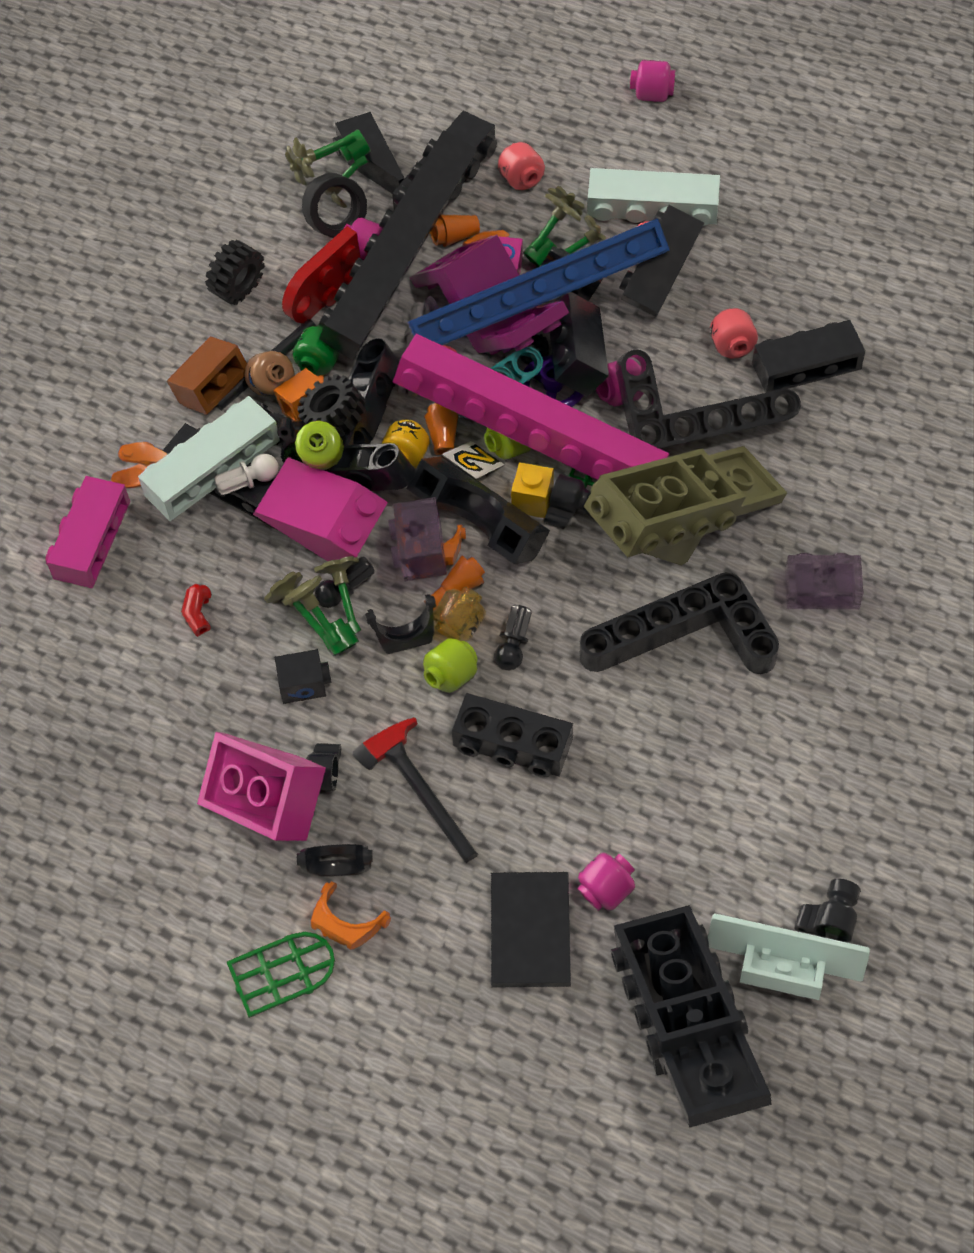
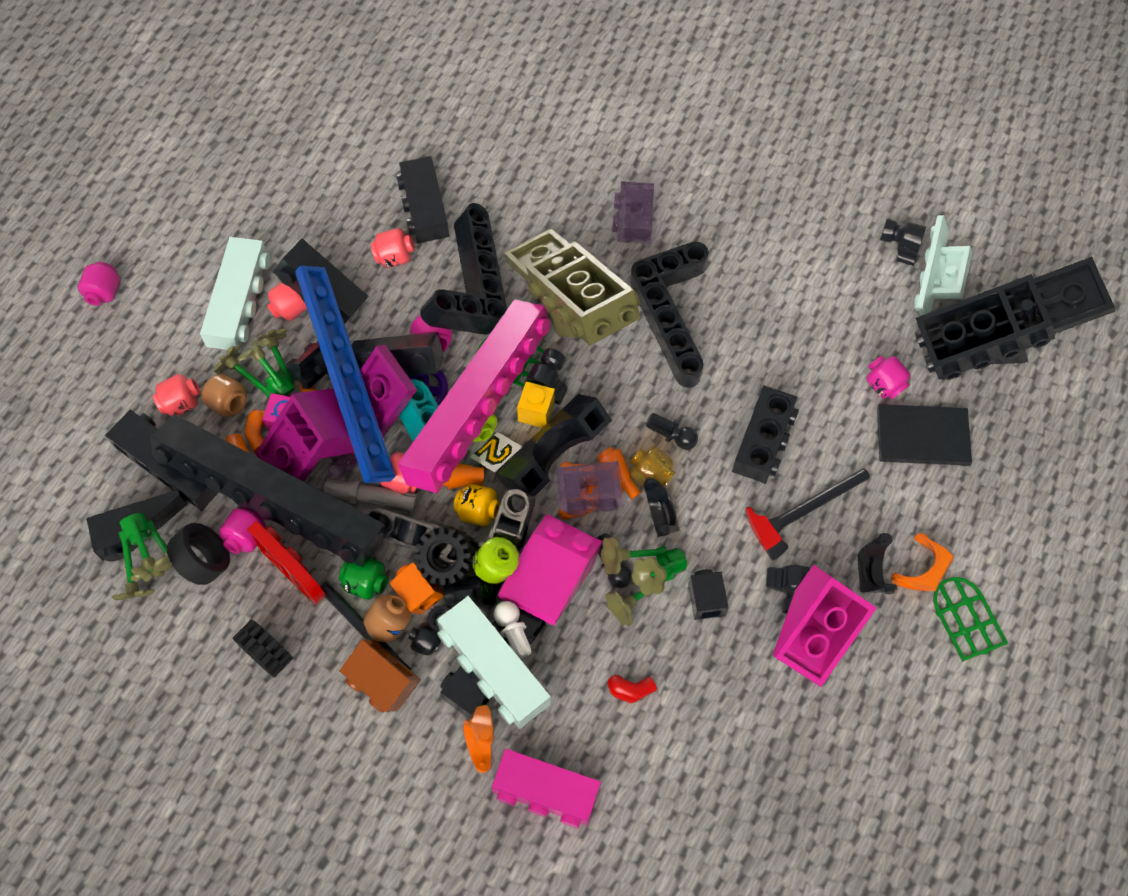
camera: 90 degrees left, 5 degrees up
(450, 665) = (700, 477): lime head -> none
(522, 204) = (224, 395): none -> medium nougat head

